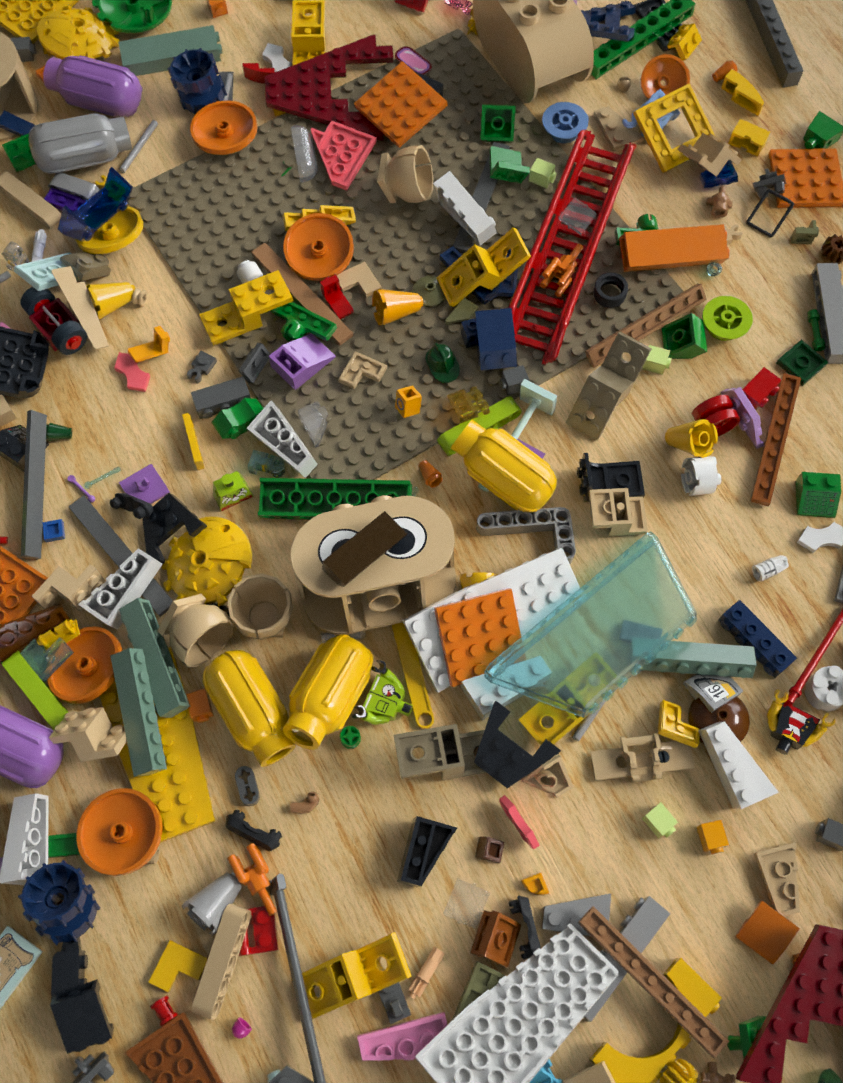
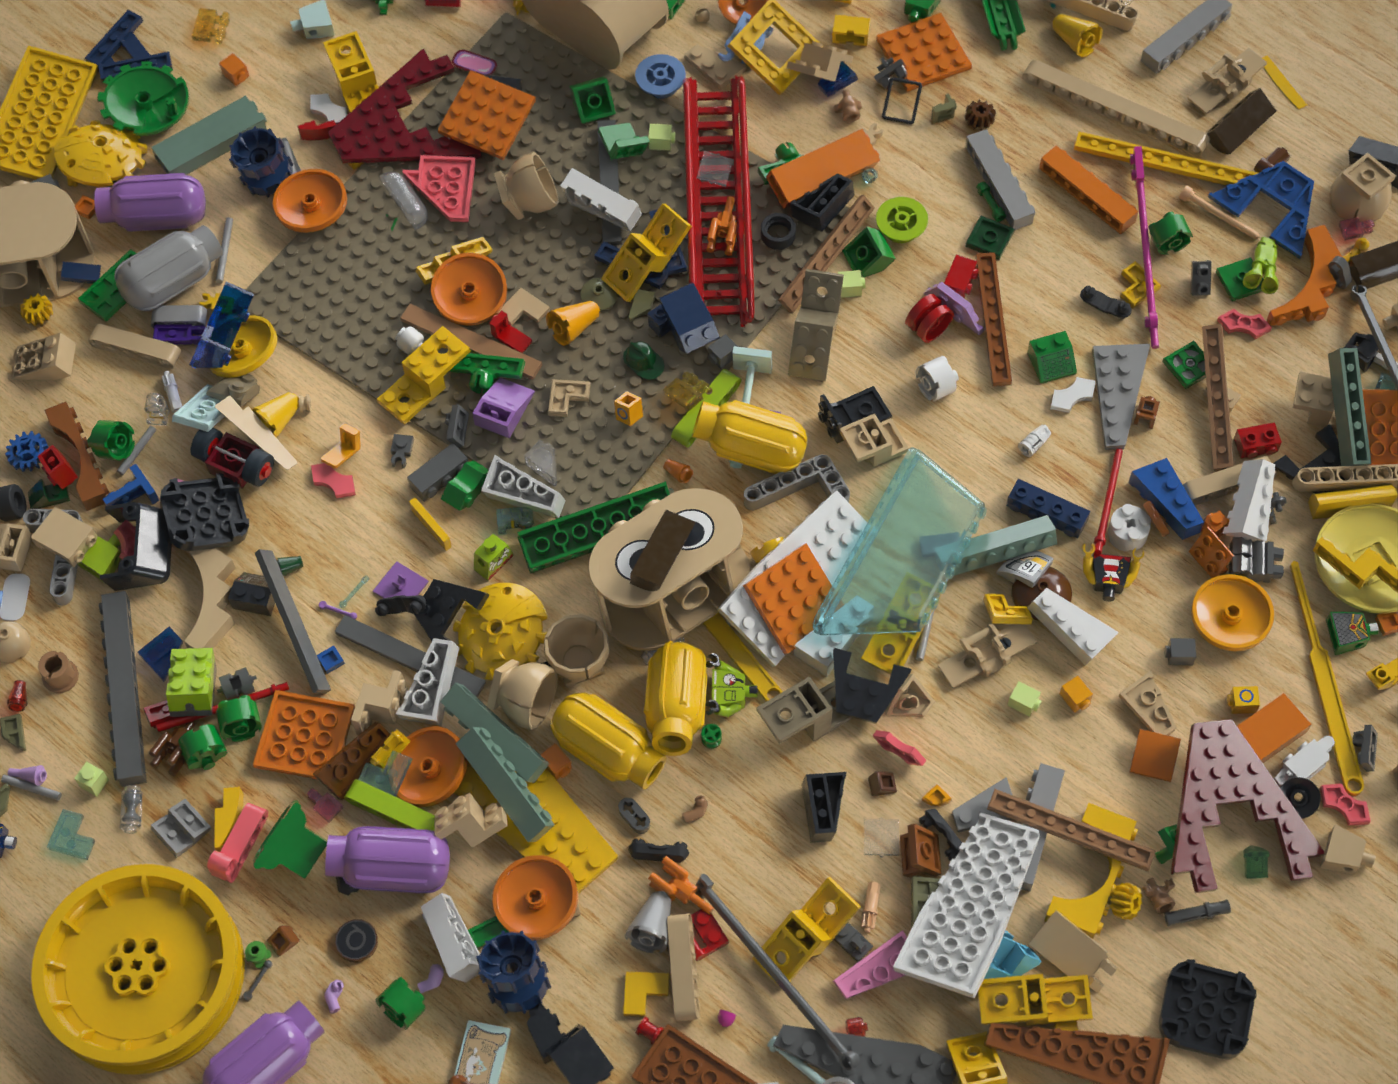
camera: 20 degrees left, 5 degrees down
(662, 279) = (824, 203): none -> black wedge
(693, 437) = (916, 345): yellow cone -> none

